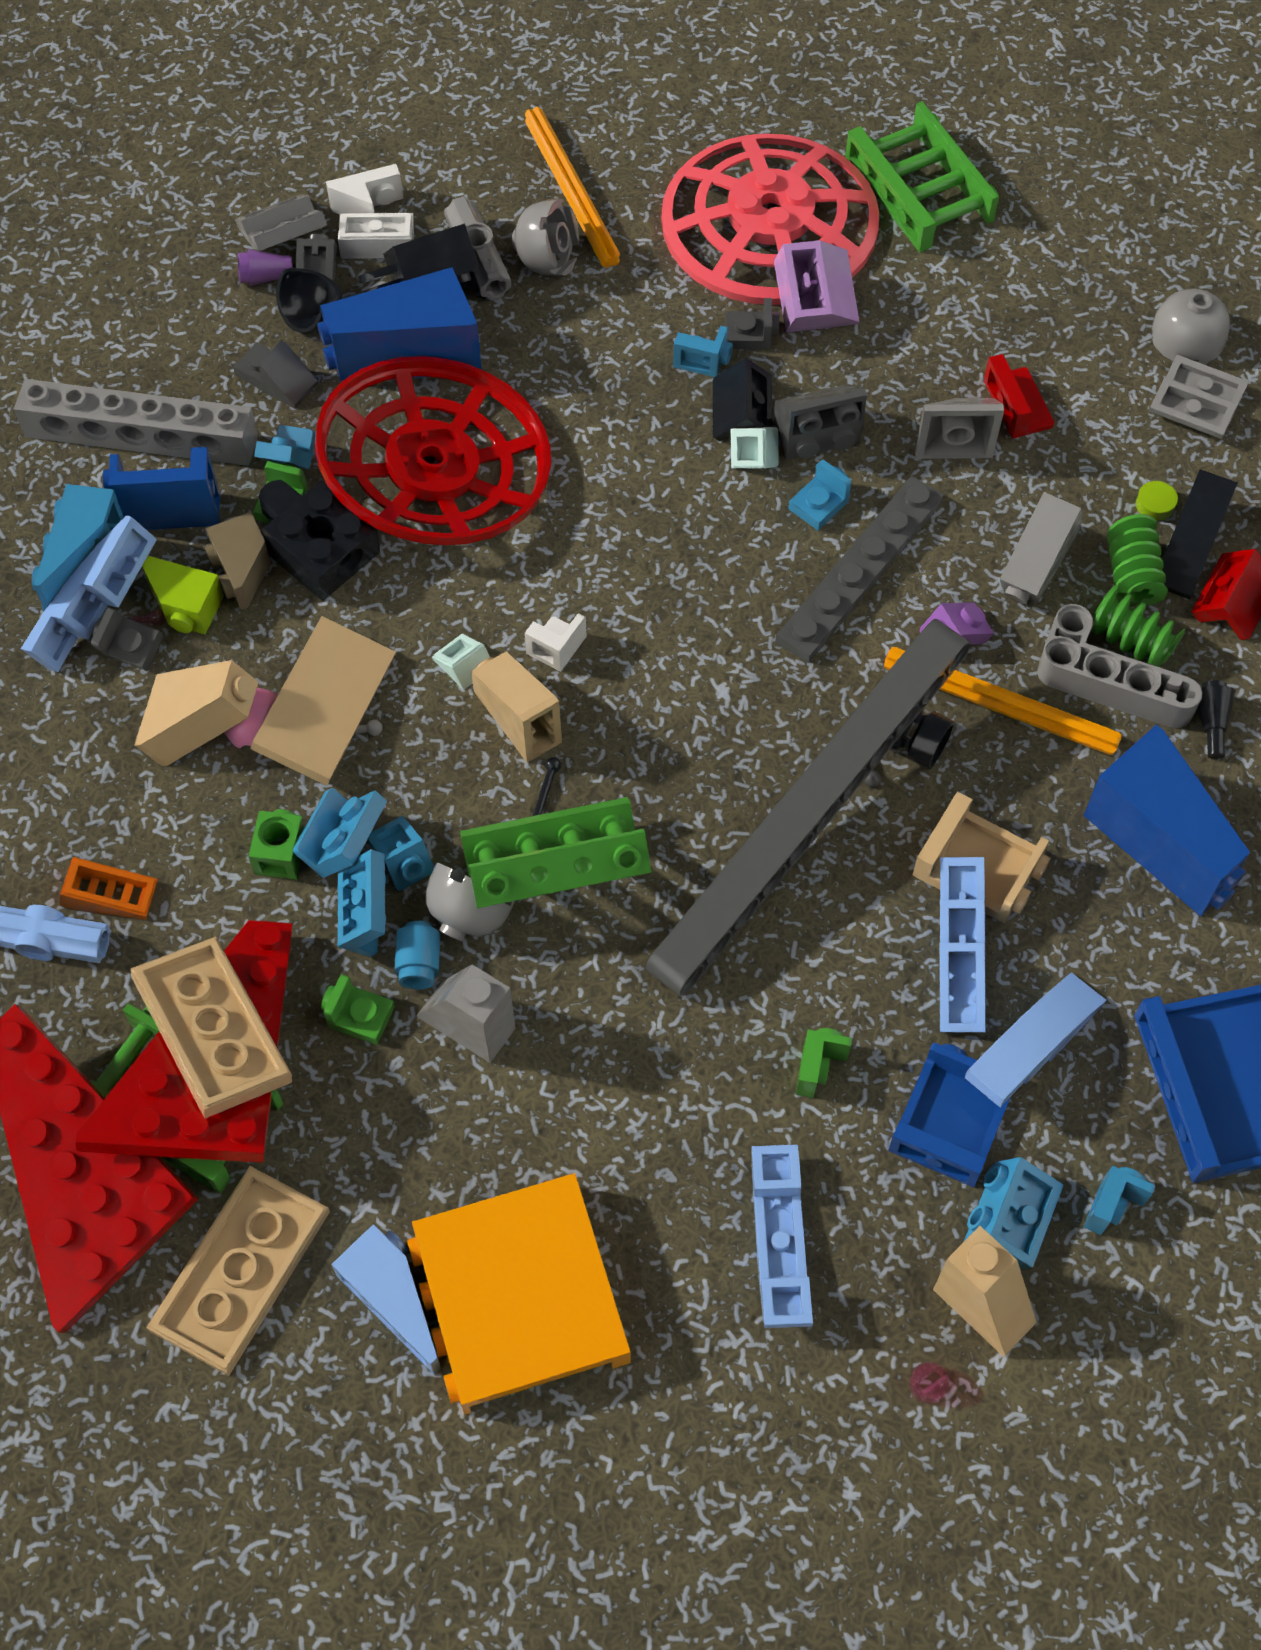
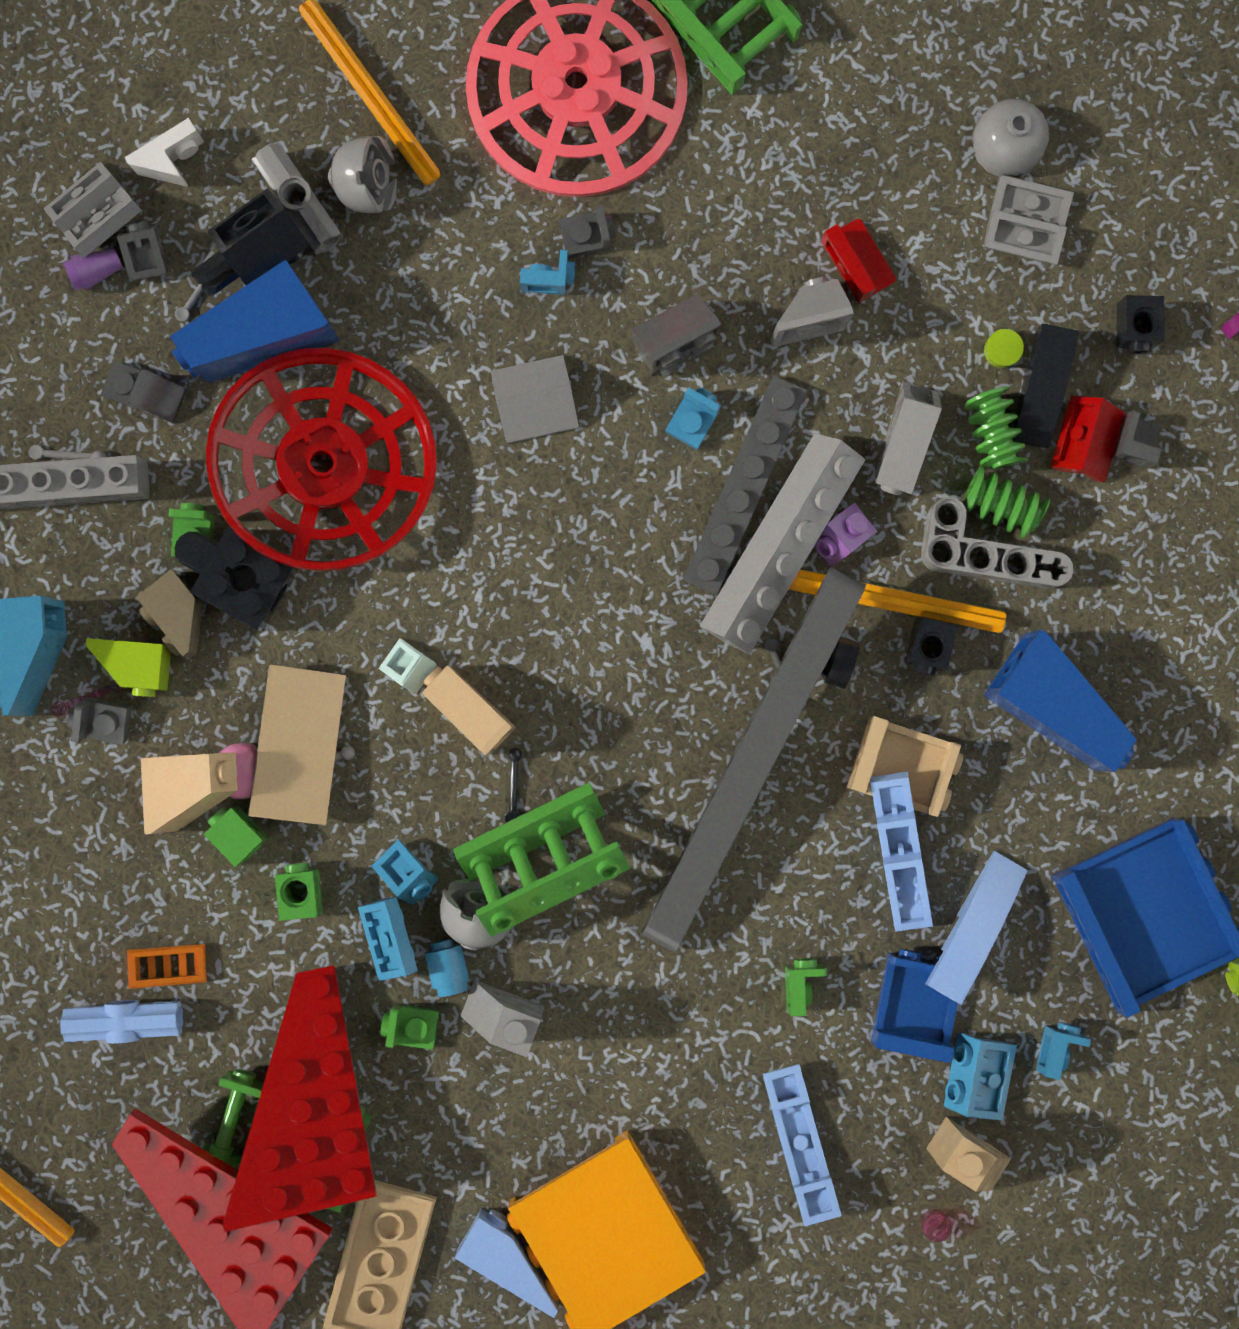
camera: 15 degrees left, 25 degrees up
(94, 585) = (47, 702): light blue slope -> none
(167, 496) = (118, 561): blue panel -> none
(211, 1027) = (298, 1097): tan tile -> none
(230, 774) = (235, 835): none -> bright green brick
(289, 446) = (185, 483): dark azure bracket -> none
(300, 297) = (149, 302): black helmet -> none
(338, 831) = (349, 873): dark azure bracket -> none
(373, 233) = (191, 201): white slope -> none
(555, 641) = (486, 628): white panel -> none
(662, 455) = (534, 399): none -> light grey slope
(741, 399) = (598, 325): black panel -> none
(754, 447) = (621, 378): light aqua slope -> none
(815, 286) = (643, 179): lavender slope -> none
(888, 616) = (782, 542): none -> light grey brick
(1035, 731) = (942, 633): none -> black brick
(1215, 714) = (1085, 575): black cone -> none

